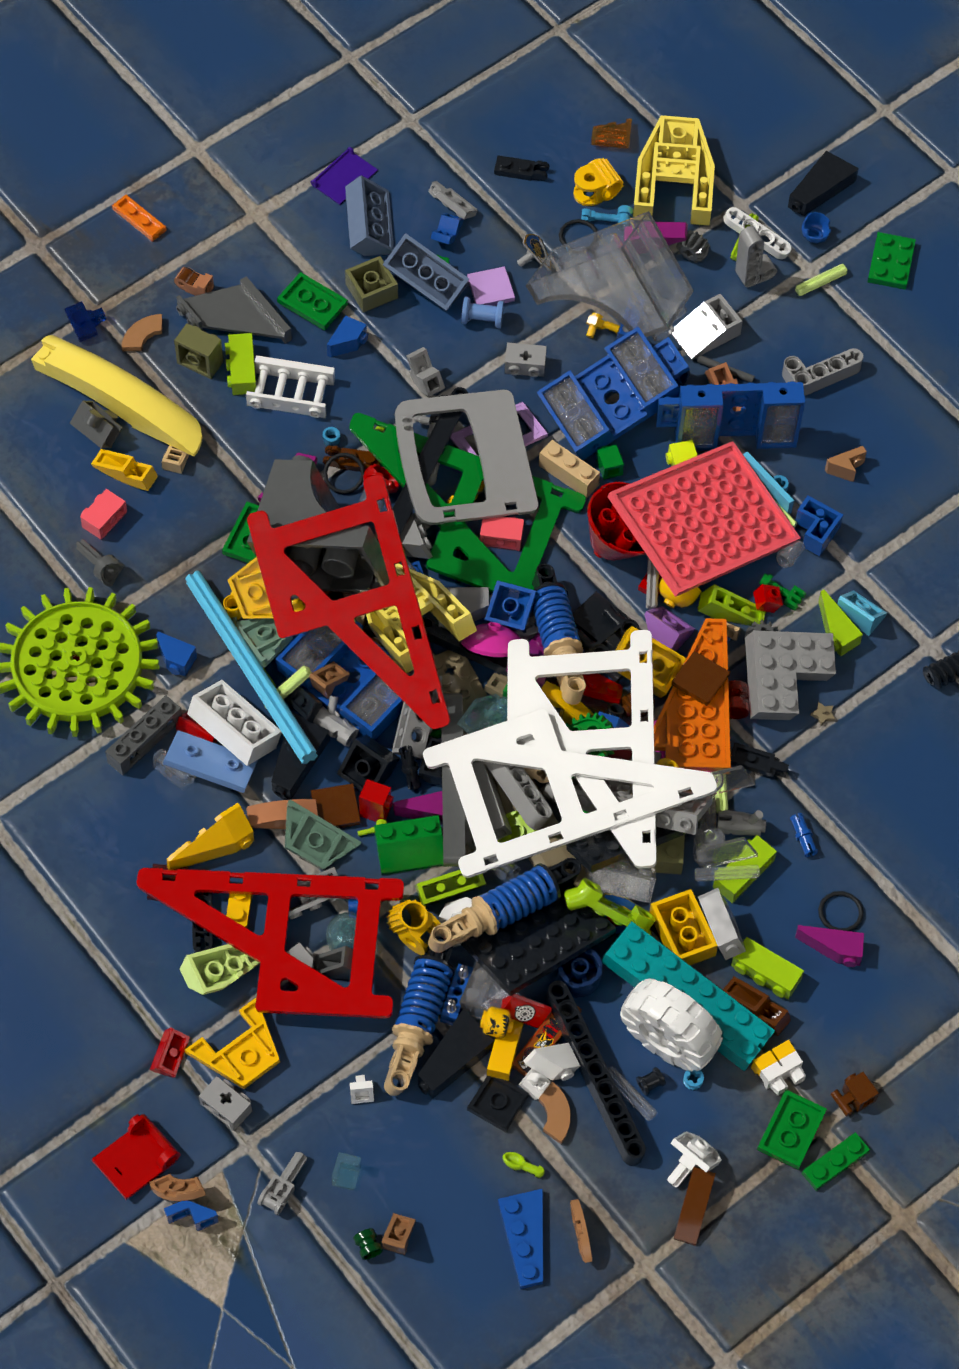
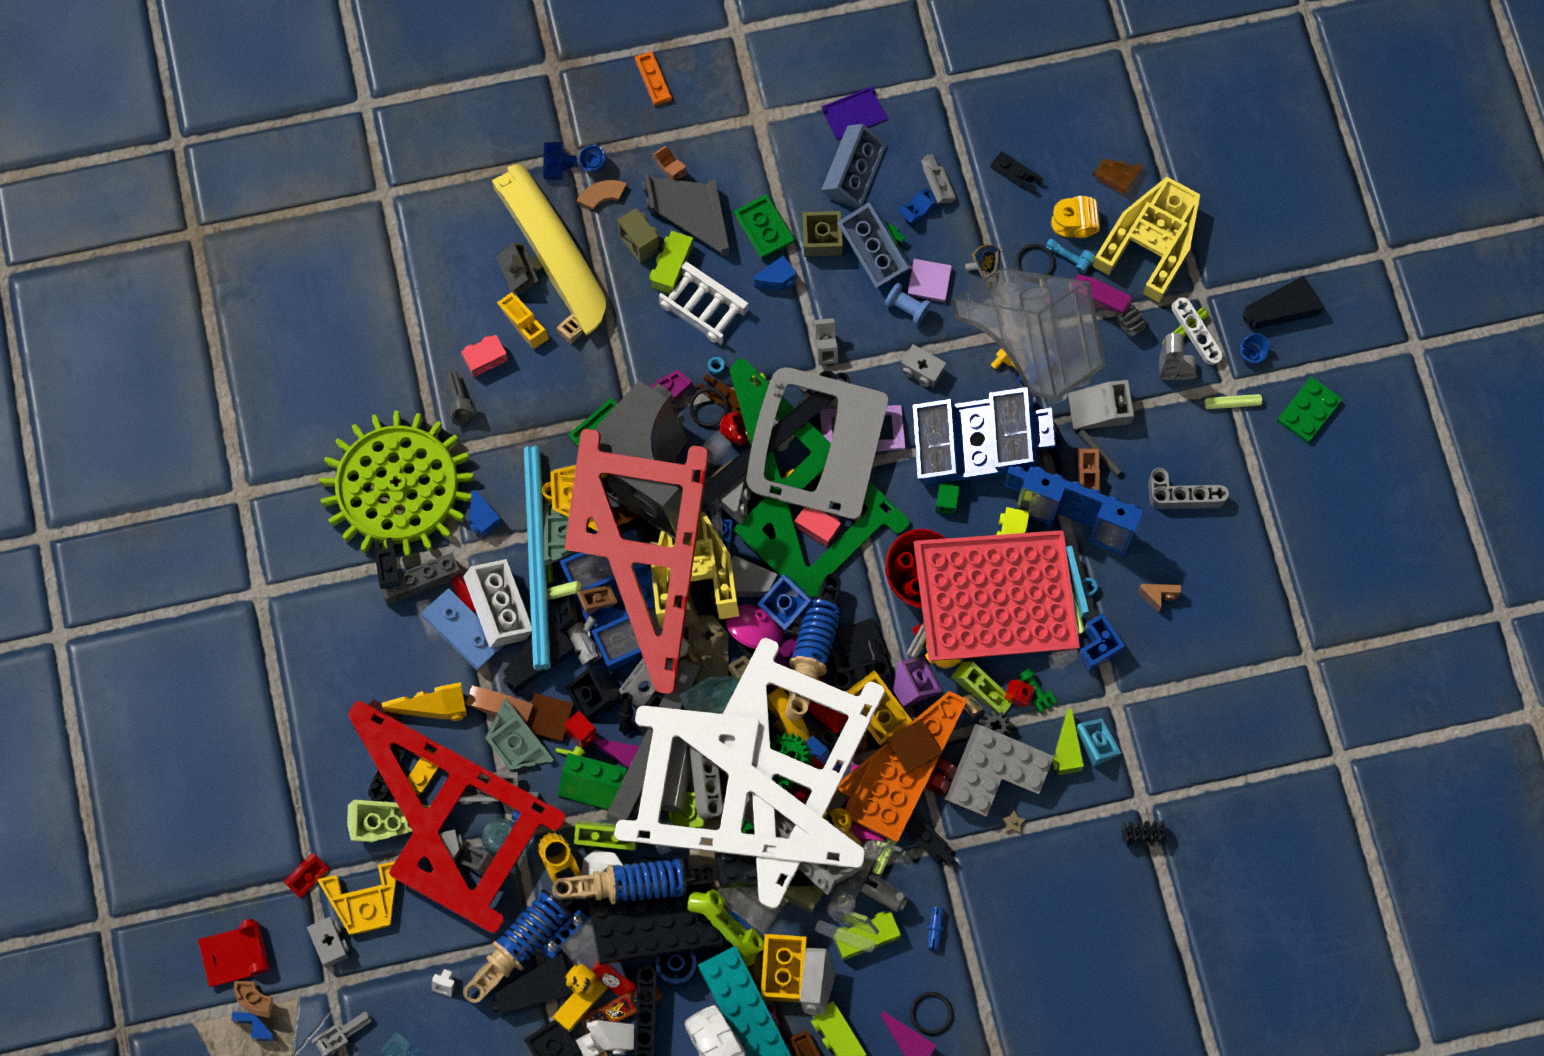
camera: 25 degrees right, 10 degrees up
(108, 730) = (386, 565): none -> black hinge
(119, 304) = (592, 158): none -> blue hair
(569, 468) = (907, 490): tan brick -> none

